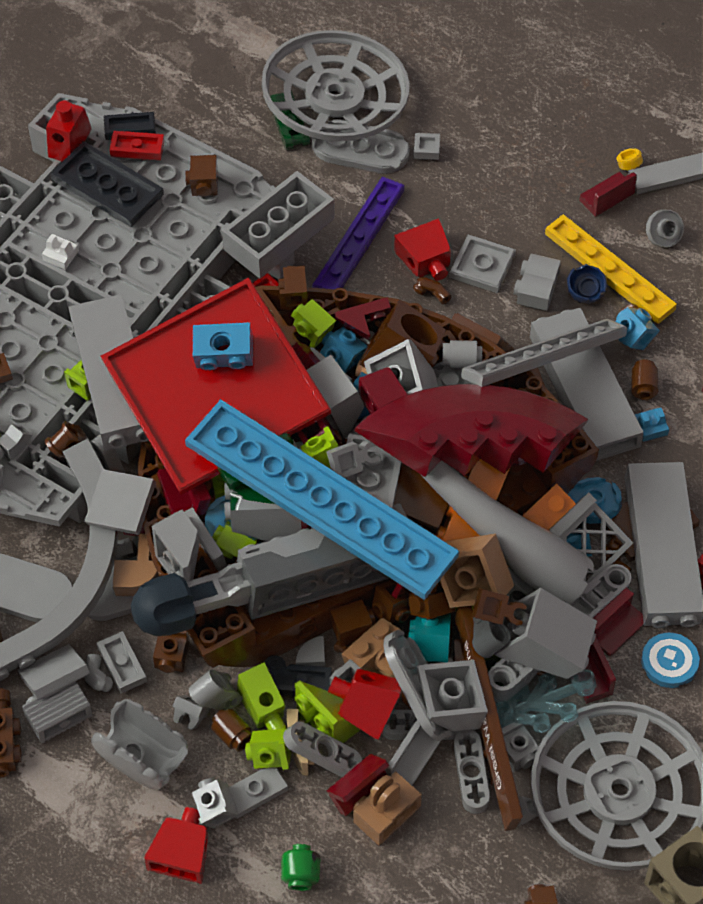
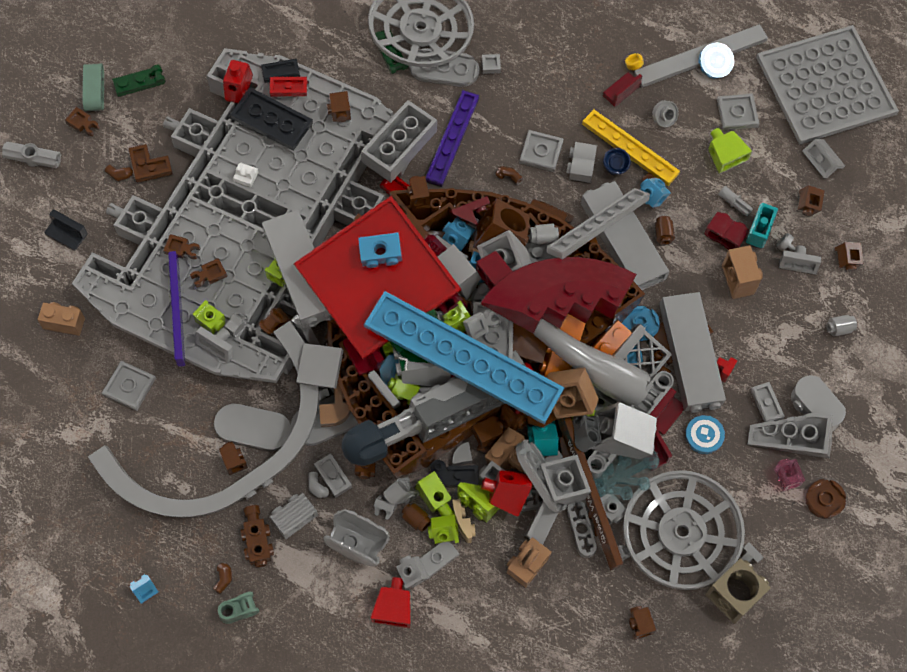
camera: 10 degrees left, 10 degrees up
(53, 672) = (287, 488): light grey tile -> none
(177, 544) = (367, 399): light grey slope -> none
(300, 867) = (476, 611): green head -> none
(310, 749) = (489, 525): light grey beam -> none
(312, 322) = (435, 217): lime brick -> none
(357, 783) = (507, 547): dark red panel -> none
(424, 250) = (500, 145): red torso -> none
(494, 607) = (589, 418): reddish brown plate -> none
(653, 424) = (673, 261): dark azure tile -> none

